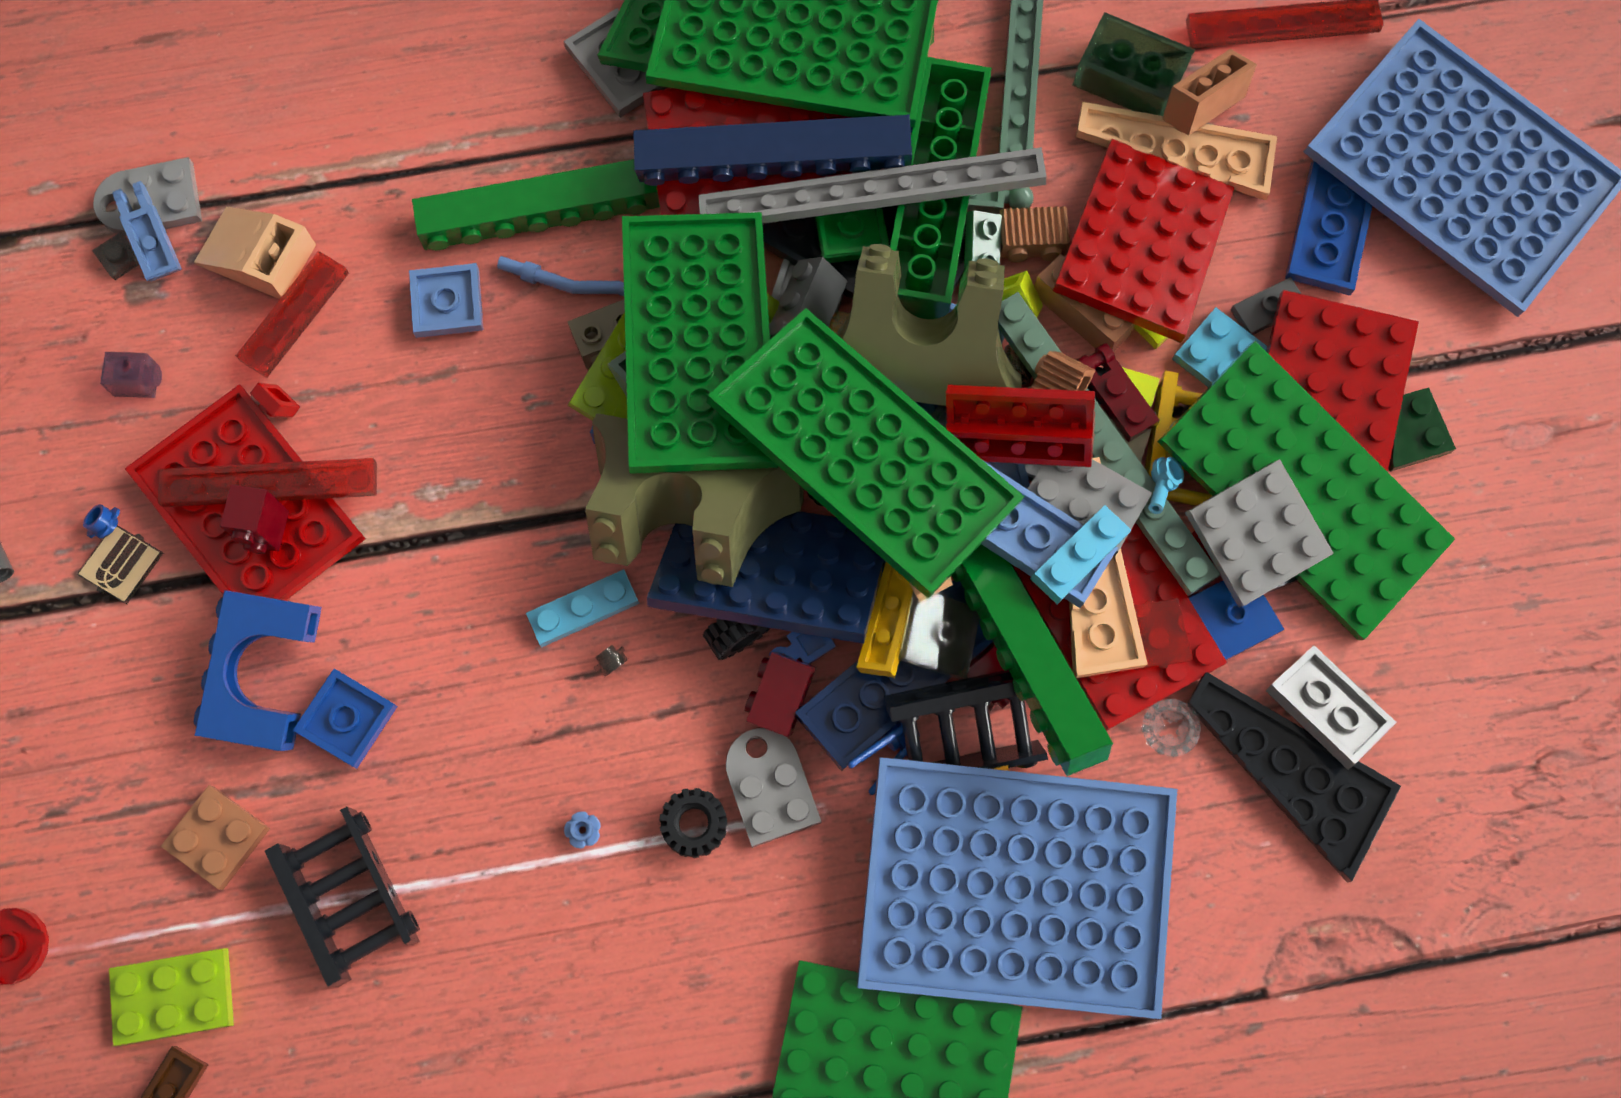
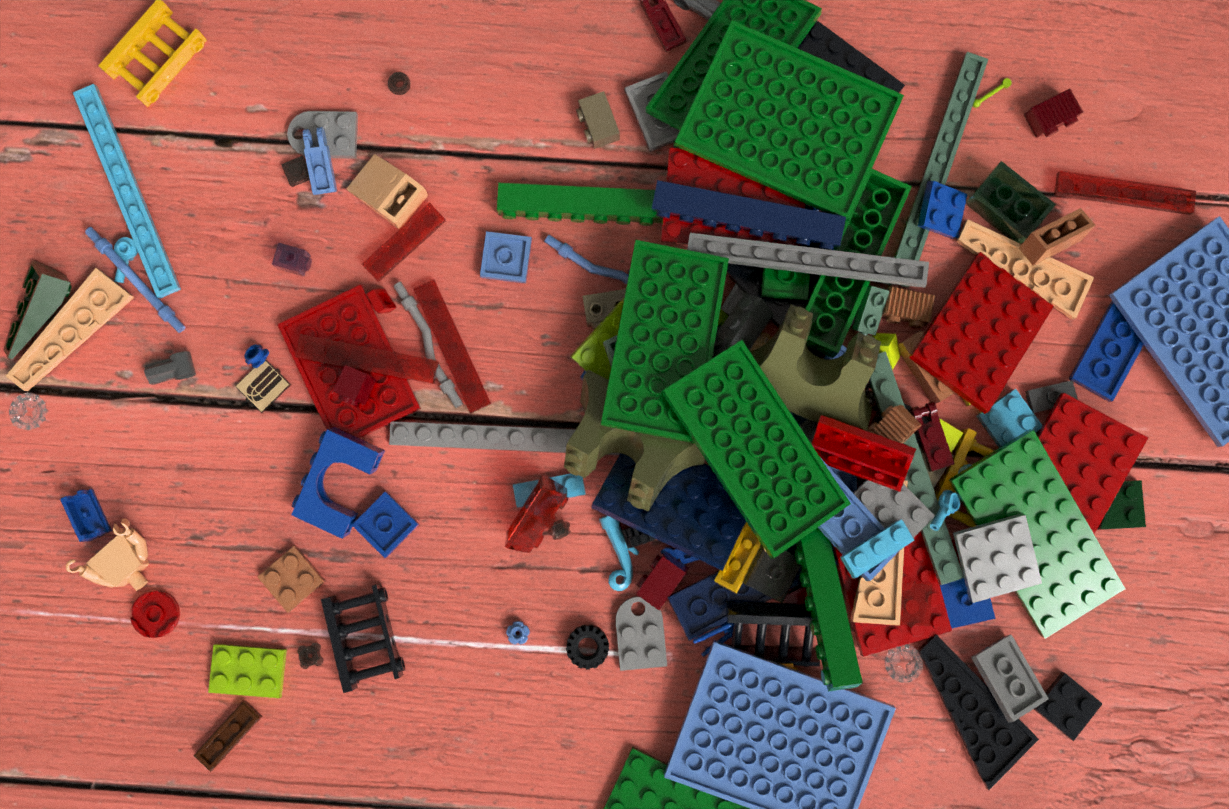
camera: 15 degrees right, 10 degrees up
(241, 100) = (399, 77): none -> clear smoke plate
(256, 951) = (304, 651): none -> clear smoke plate
(320, 398) = (409, 304): none -> light grey bar
(395, 442) = (452, 346): none -> clear red plate
(463, 559) = (480, 437): none -> light grey plate
(537, 90) = (598, 120): none -> dark tan brick
(570, 643) = (536, 515): none -> clear red slope
(695, 646) = (618, 542): none -> medium azure plant
(1044, 96) = (942, 209): none -> blue plate
(1428, 730) = (1068, 706): none -> black plate

